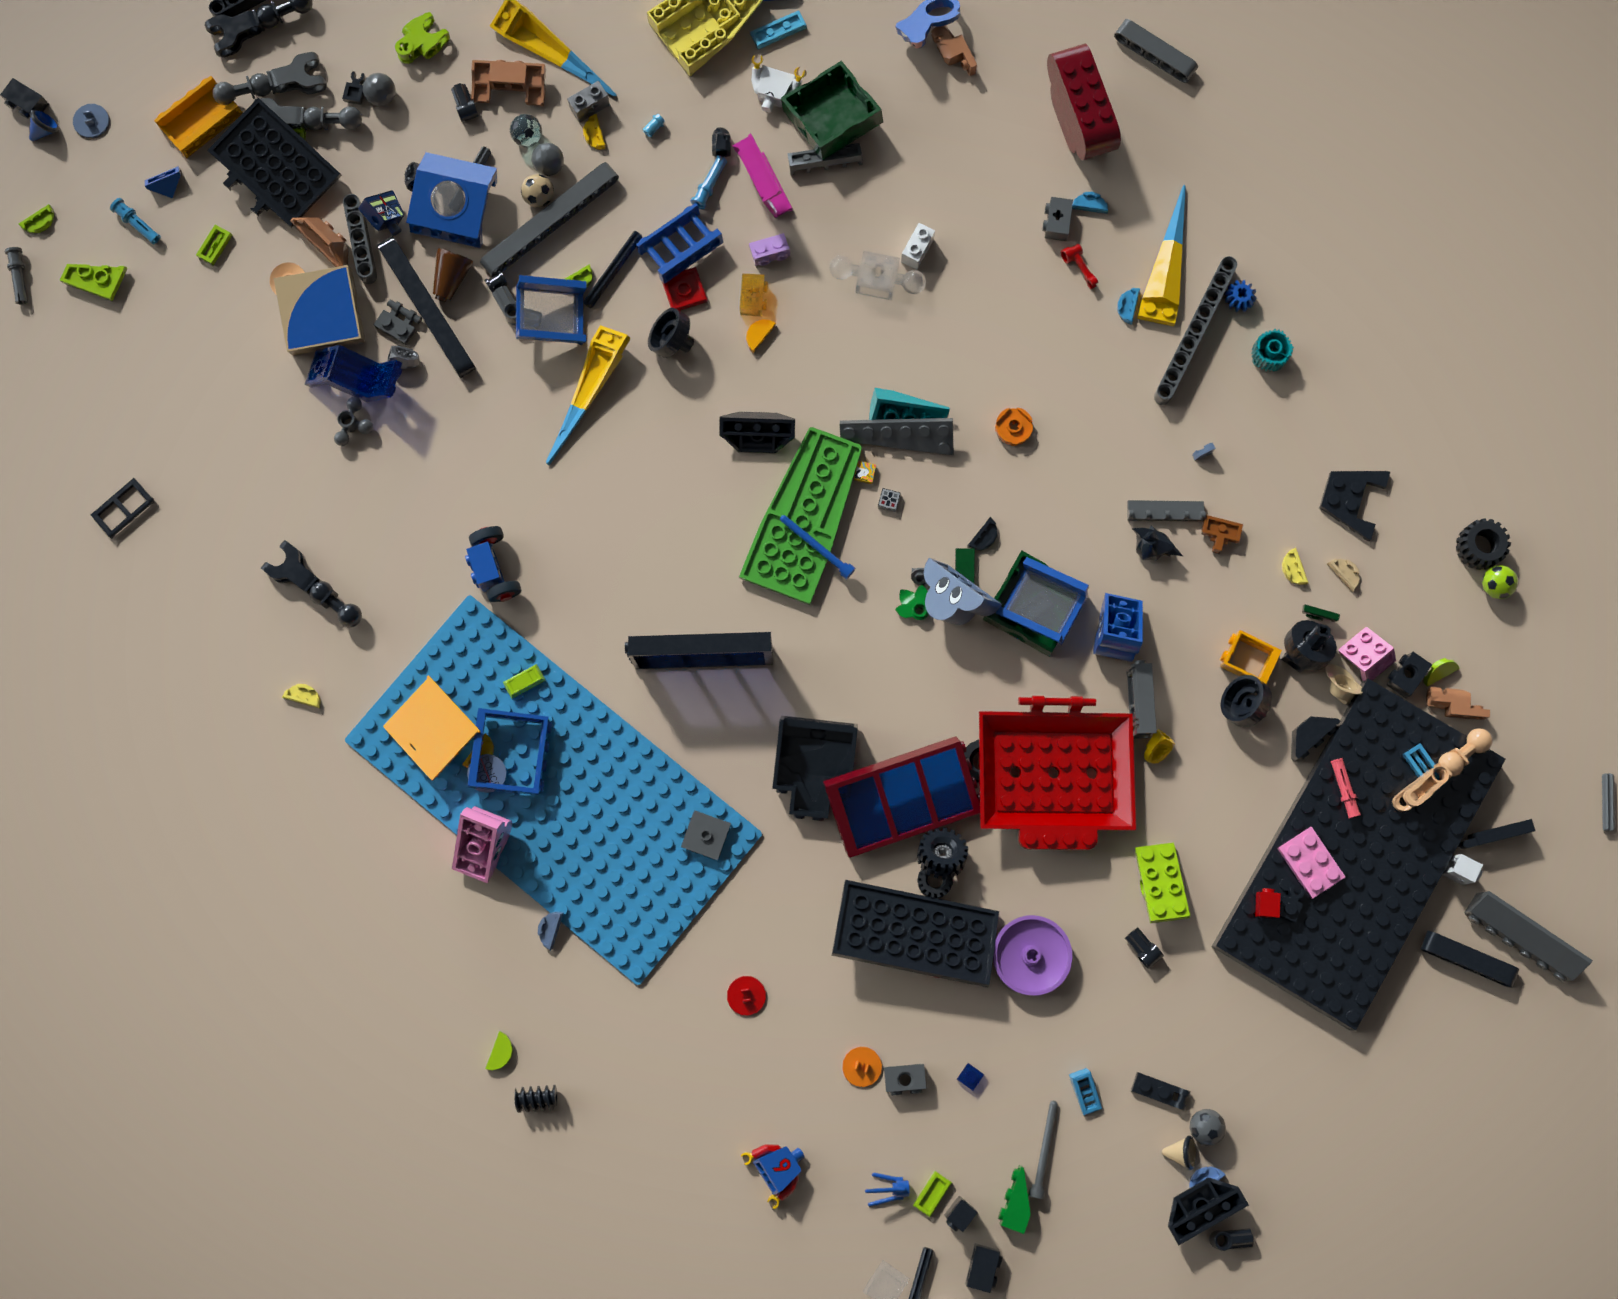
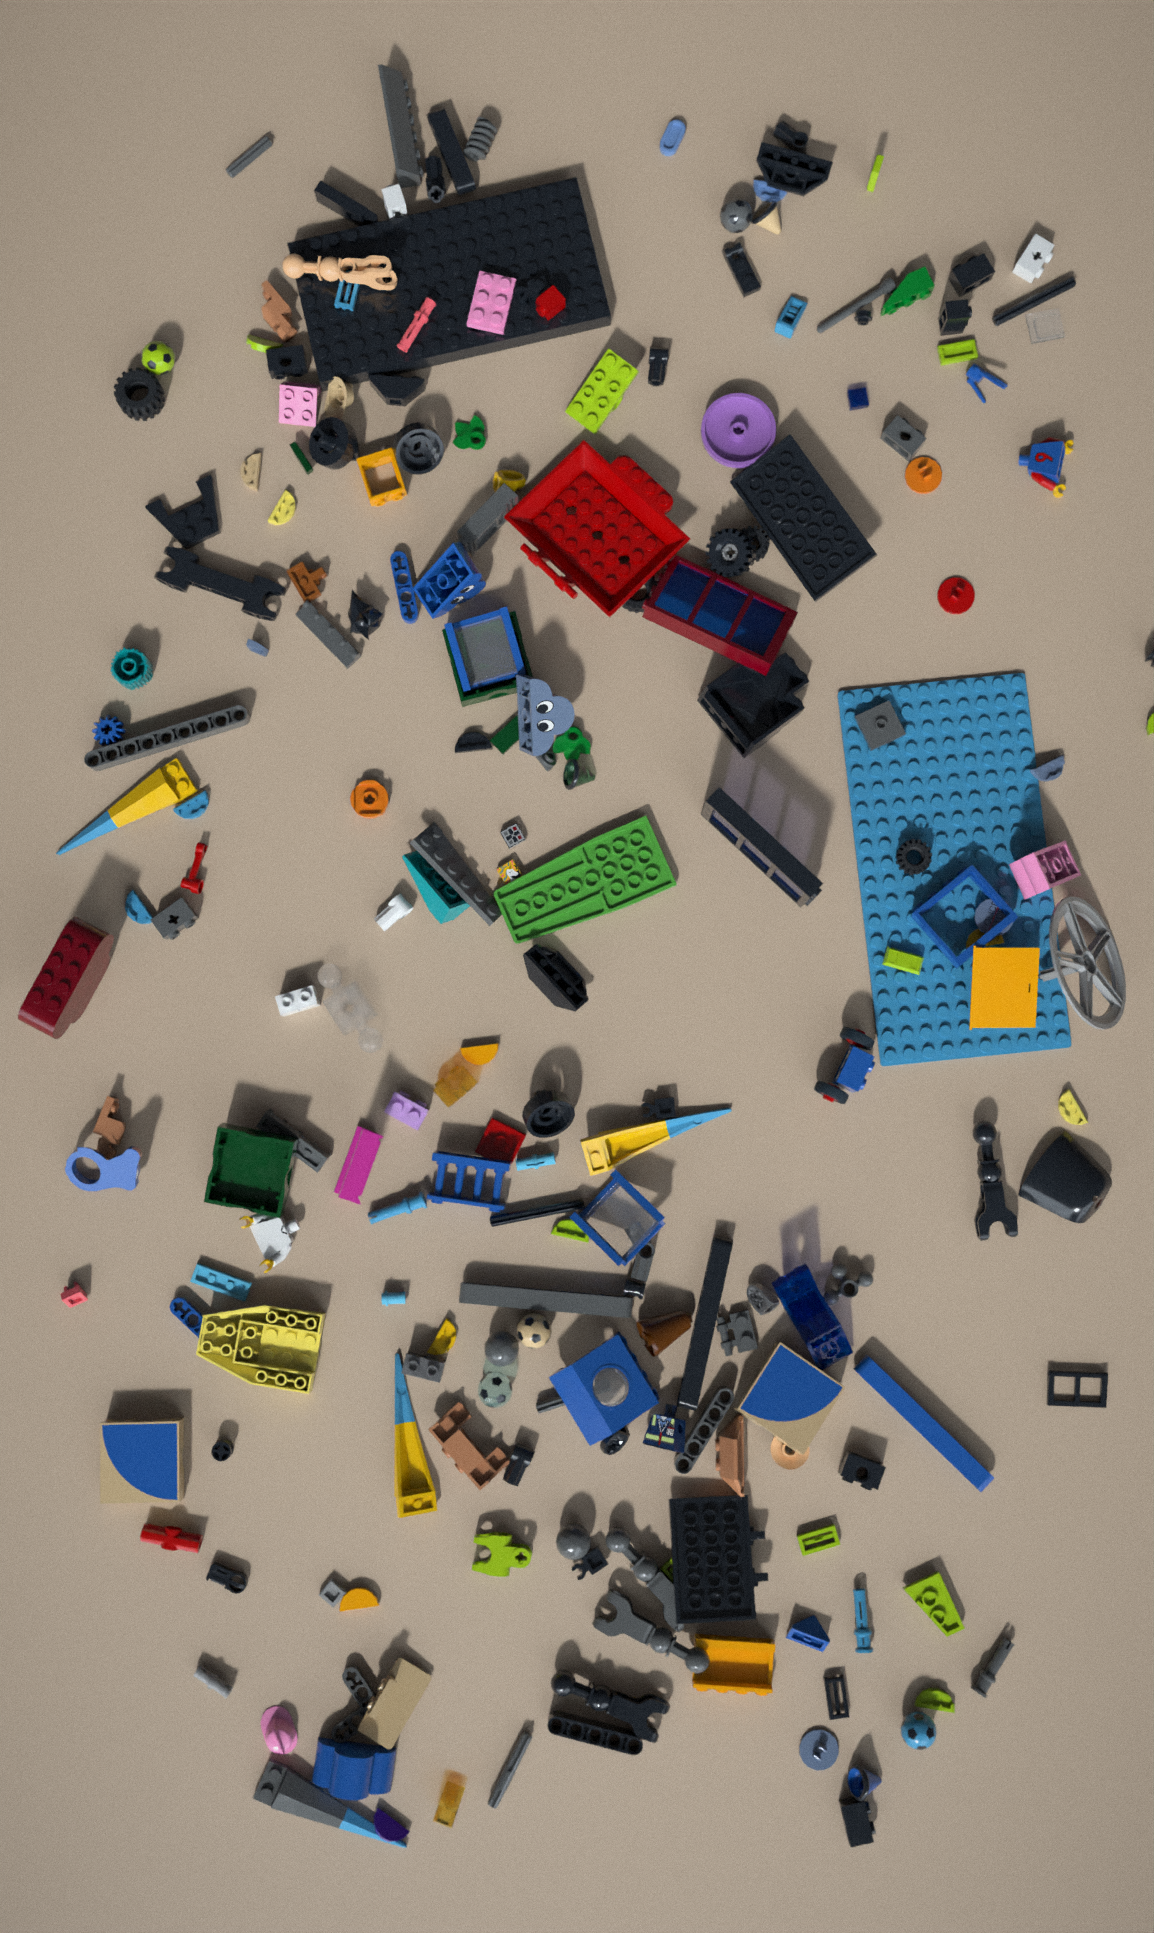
camera: 135 degrees left, 5 degrees up
(32, 188) = (918, 1730): none -> dark azure piece
(120, 170) = (833, 1680): none -> black tile
(210, 383) = (923, 1423): none -> blue beam
(235, 316) = (853, 1461): none -> black brick
(259, 641) = (1067, 1181): none -> black piece
(384, 795) = (1085, 963): none -> light grey wheel
(582, 750) = (902, 857): none -> black tyre
(595, 417) = (663, 1108): none -> black plate
(647, 299) = (535, 1161): none -> medium azure pin
(721, 142) = (356, 1232): black rock -> none
(845, 569) = (596, 813): blue piece -> none
(887, 584) = (576, 774): none -> clear green hat
(915, 371) = (396, 910): none -> white piece
(1030, 1146) = (863, 317): none -> black plate
(1138, 1273) = (875, 172): none -> lime tile
(1148, 599) = (404, 587): none -> blue beam
(1225, 755) = (468, 433): none -> green plate
(1307, 455) = (189, 572): none -> black piece
(1321, 1146) = (672, 137): none -> medium blue tile
(1454, 921) = (435, 180): none -> black piece
(1458, 990) = (480, 140): none -> dark grey piece

